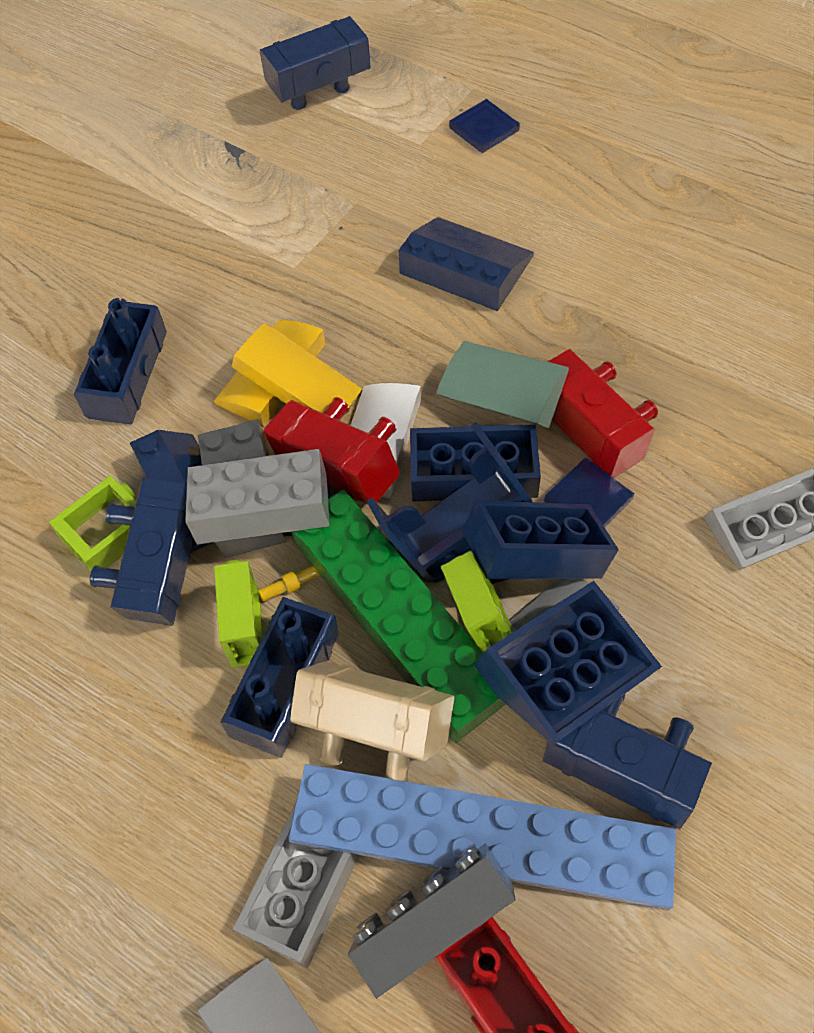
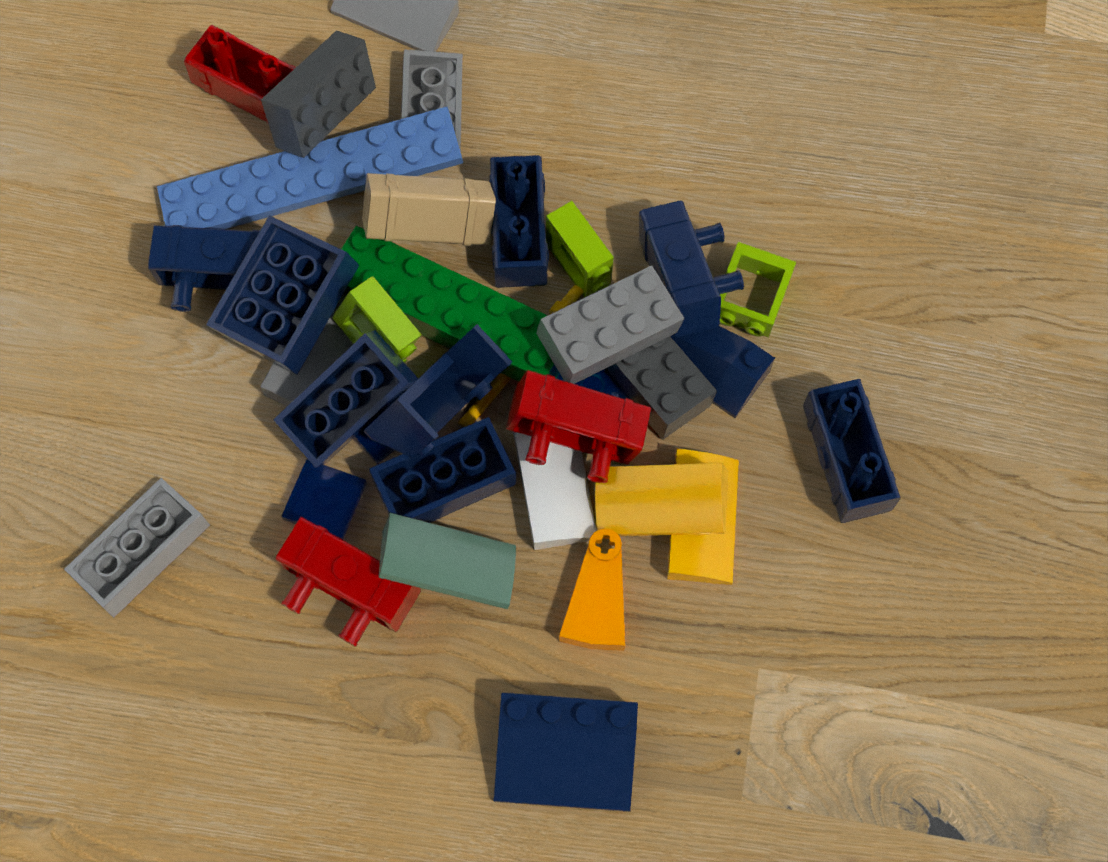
camera: 150 degrees right, 10 degrees up
(389, 341) = (597, 601): none -> light orange piece

